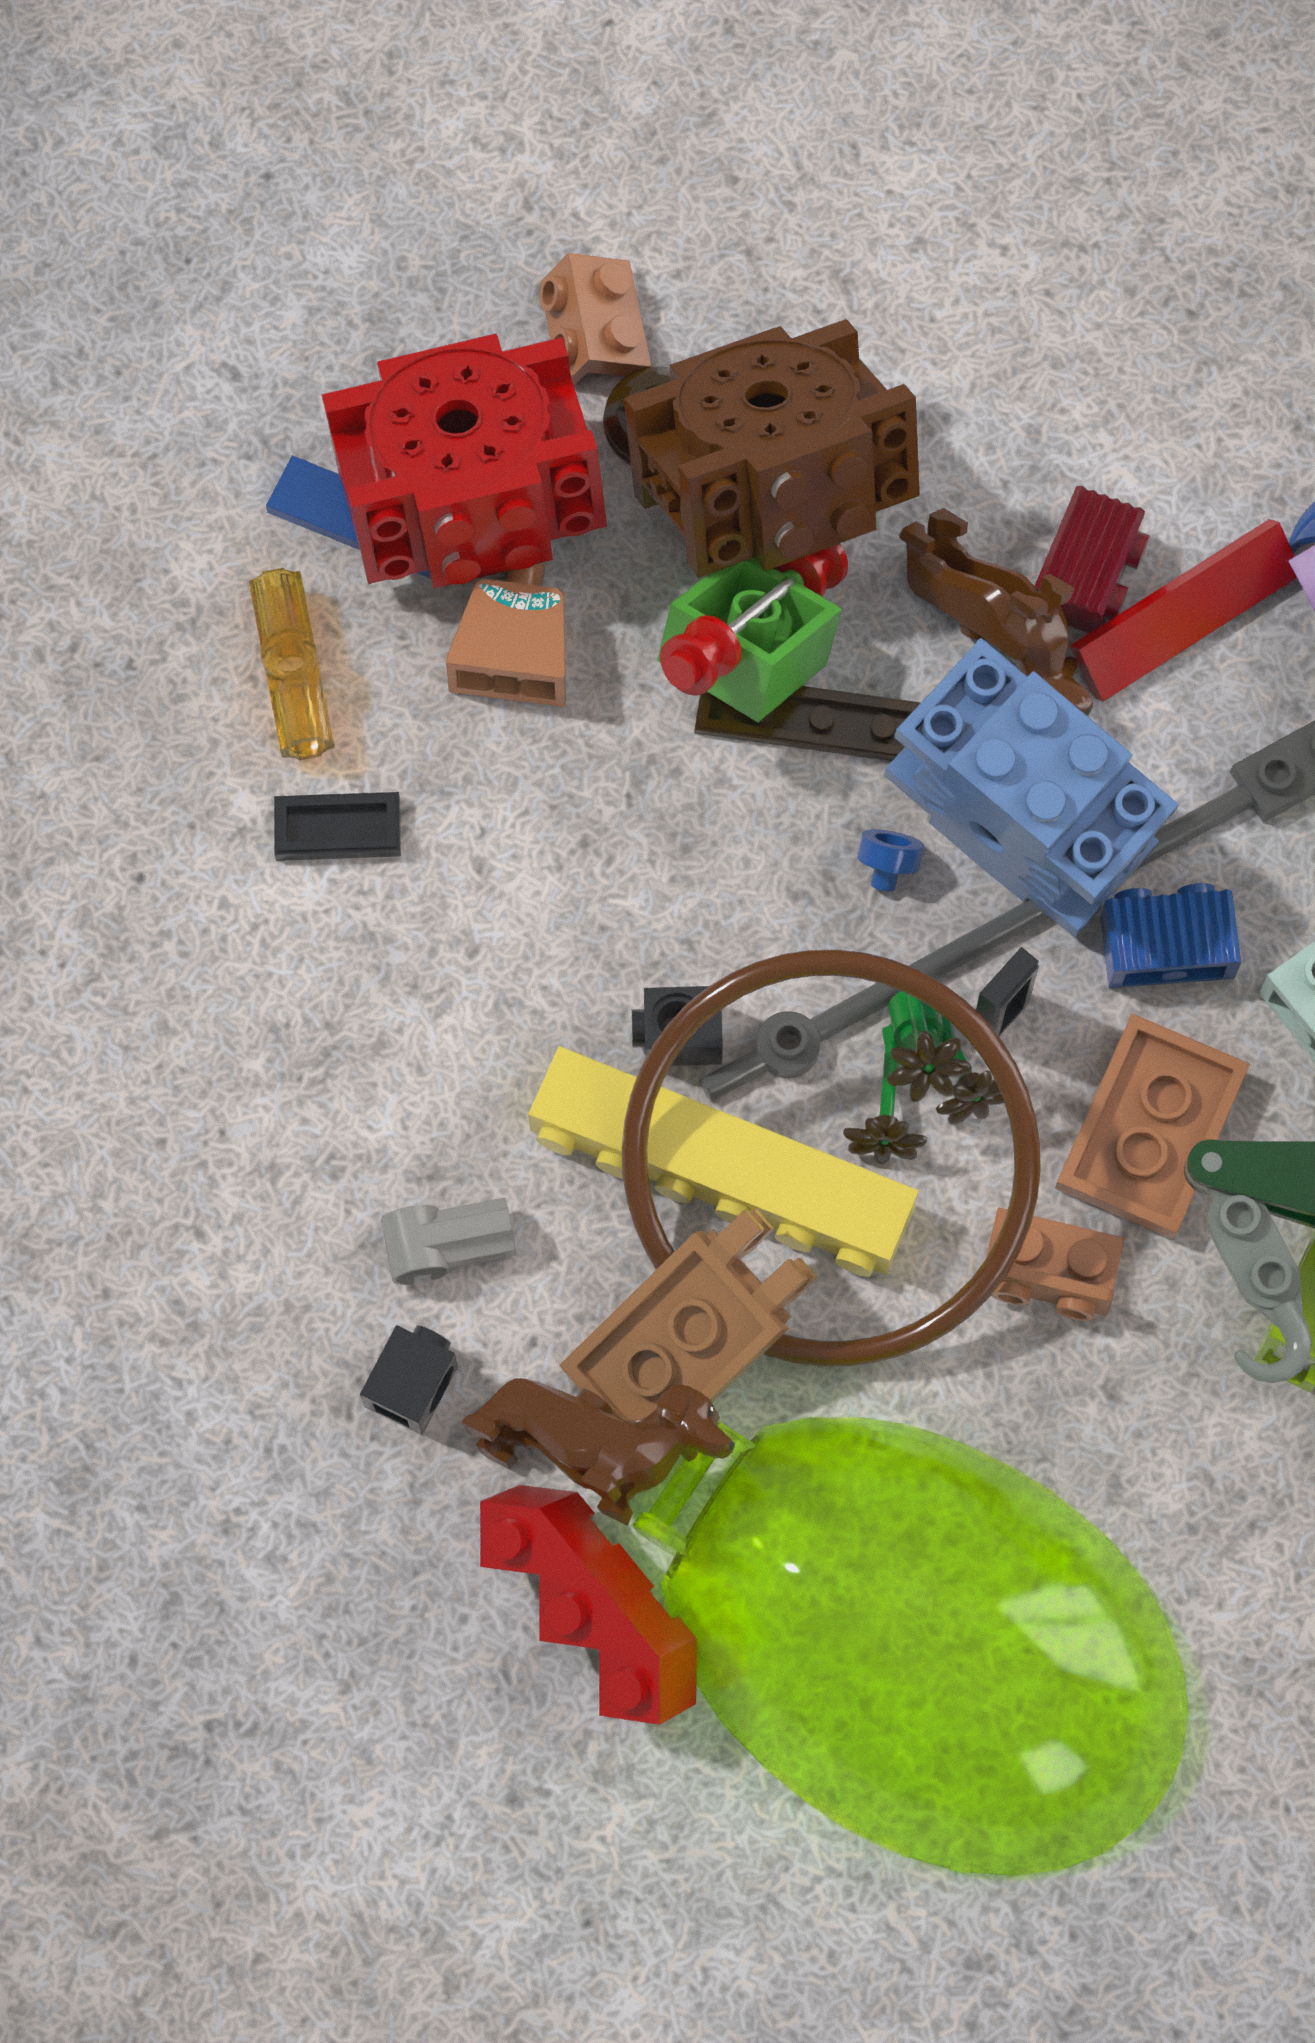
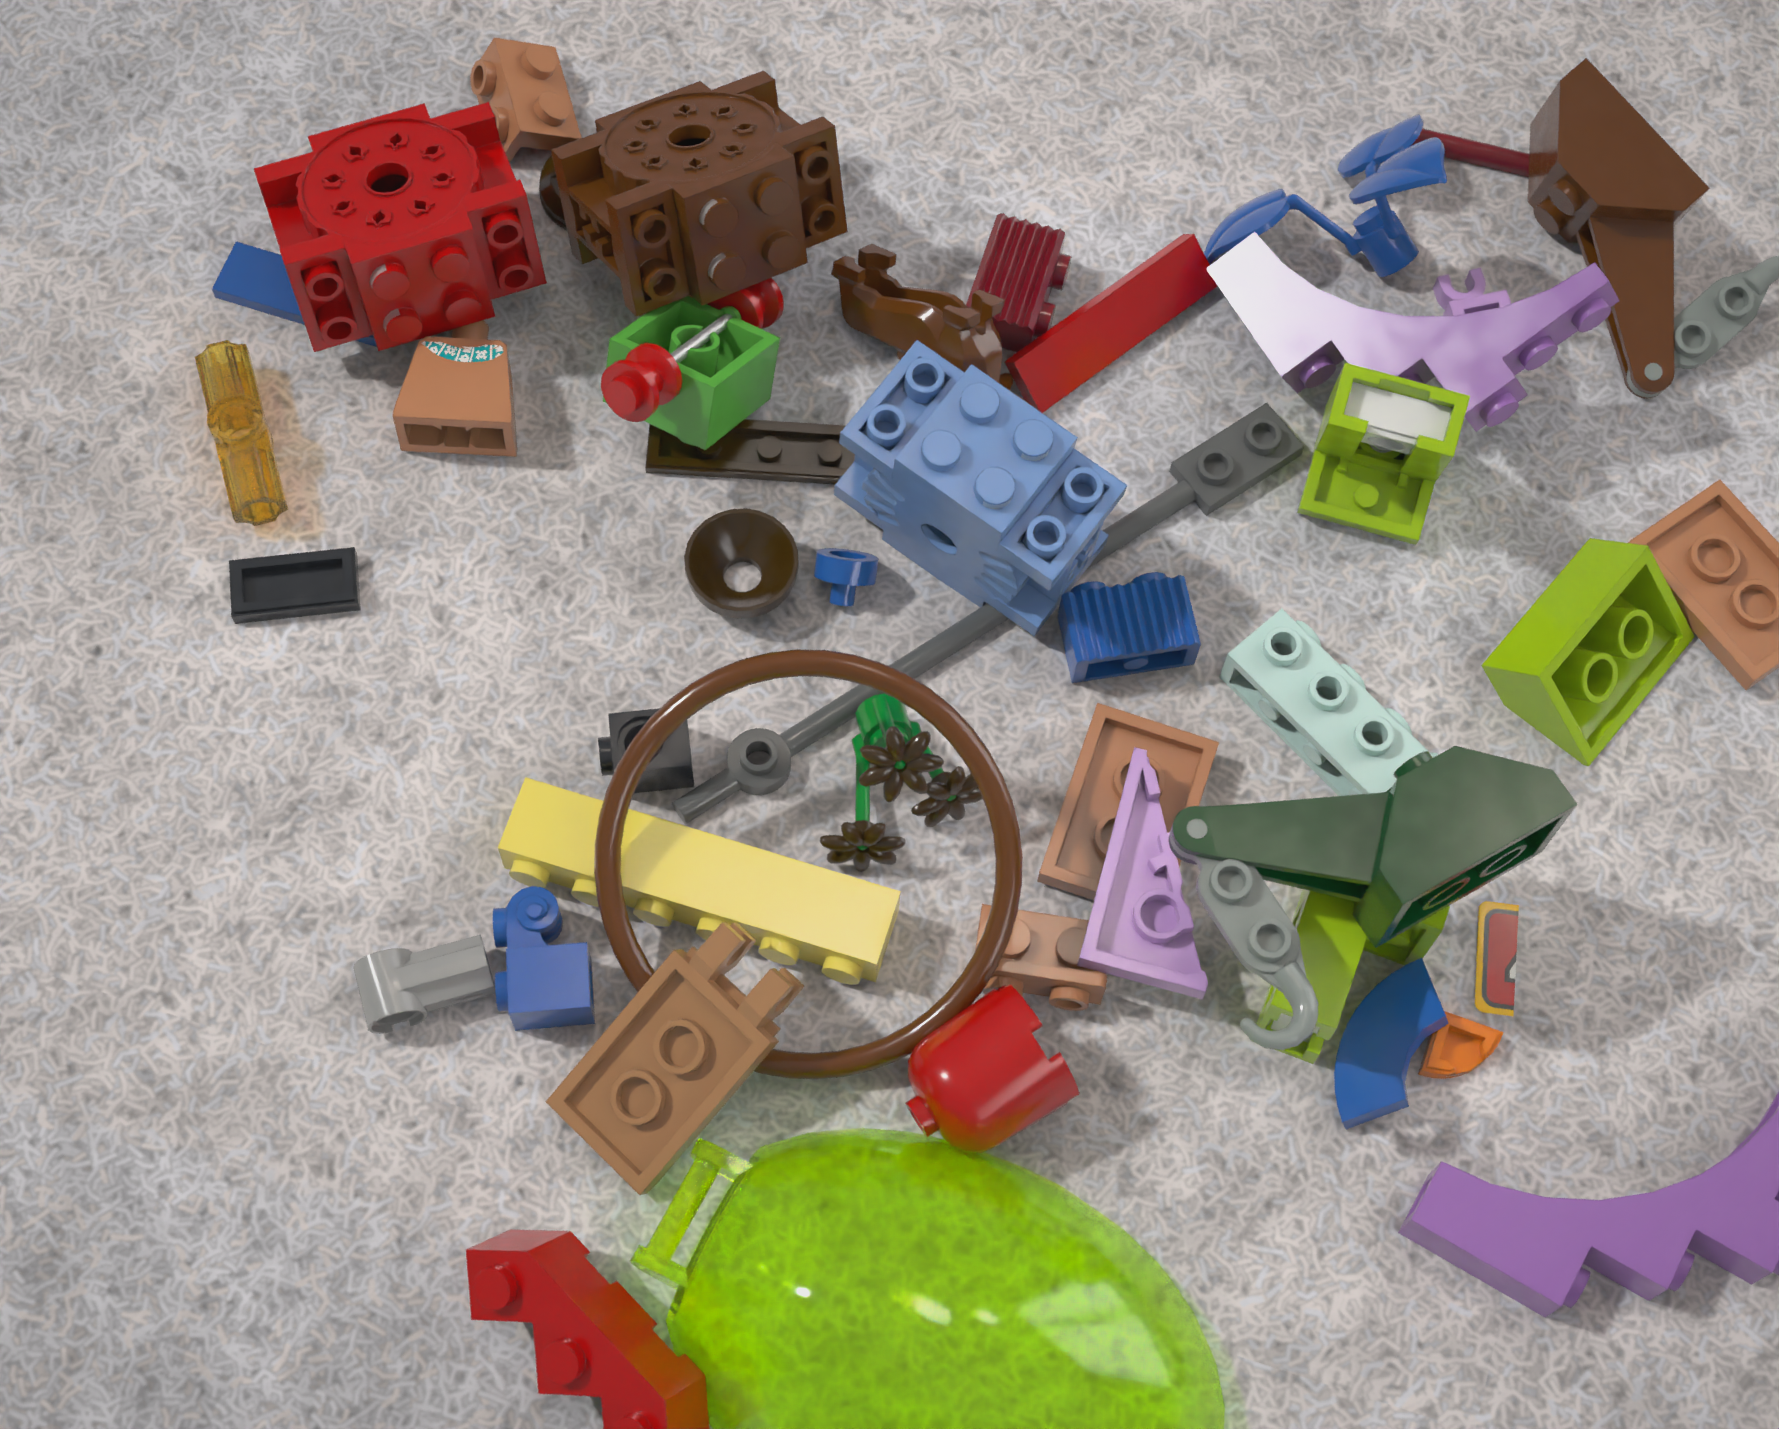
camera: 10 degrees left, 5 degrees down
(410, 1377) = (390, 1127): black brick -> none
(564, 1249) = (542, 981): none -> blue brick
(593, 1445) = (583, 1180): reddish brown animal -> none
(785, 812) = (736, 538): none -> dark brown piece
(987, 1378) = (986, 1075): none -> red cylinder
(1008, 991) = (975, 684): black tile -> none
(1152, 1228) = (1139, 912): none -> lavender wing

